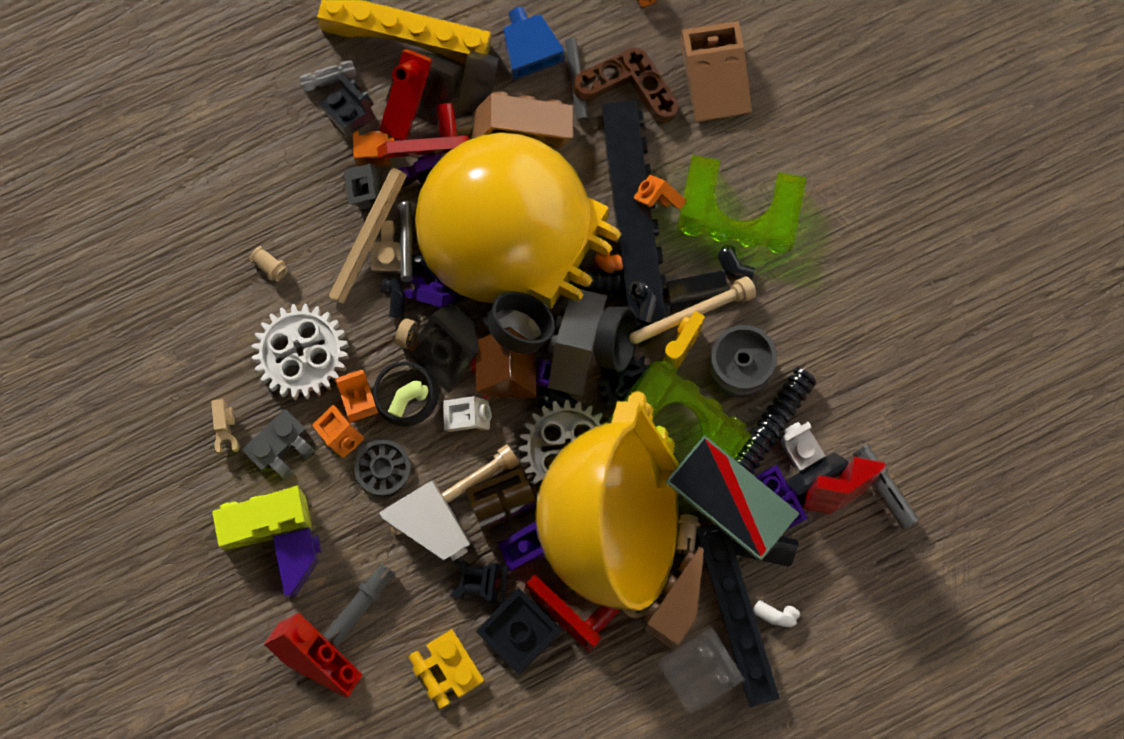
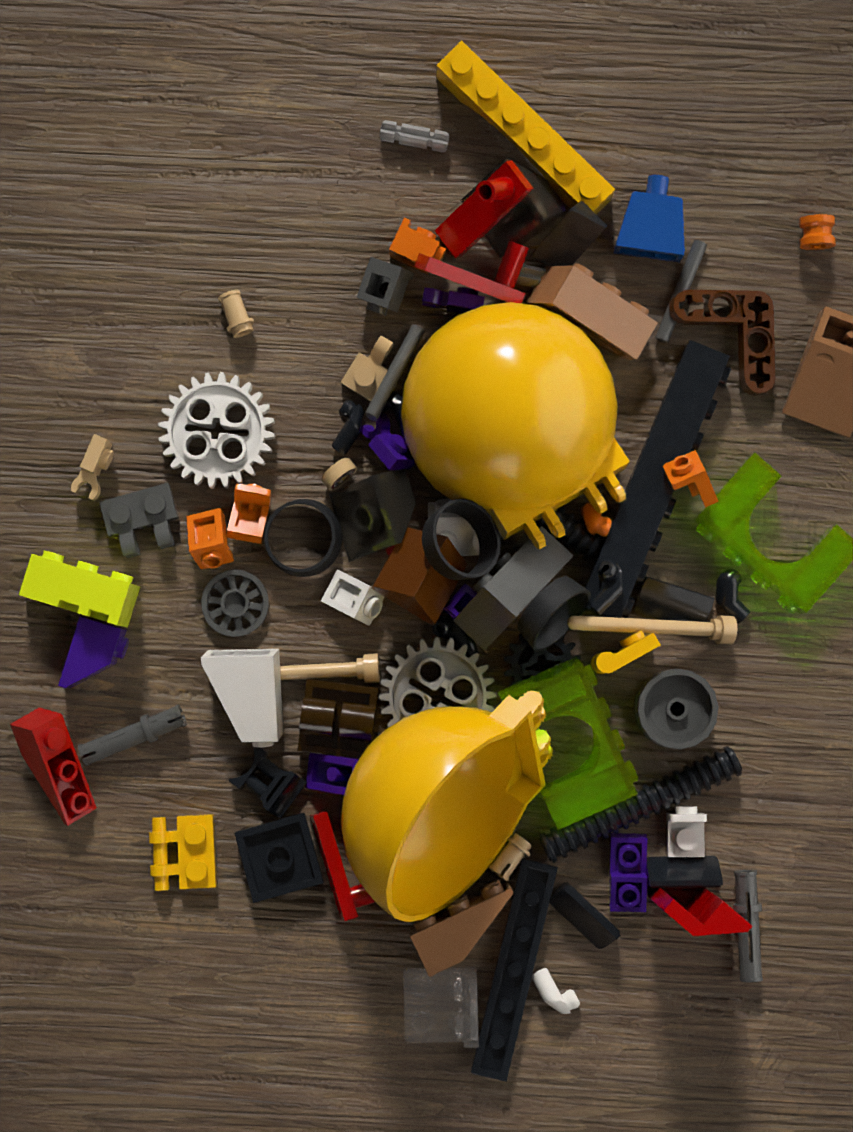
camera: 30 degrees right, 10 degrees up
(349, 106) = (414, 188): black bracket -> none
(367, 235) = (357, 343): tan axle -> none
(405, 394) = (302, 544): yellowish green arm -> none
(732, 498) = (577, 851): tile -> none

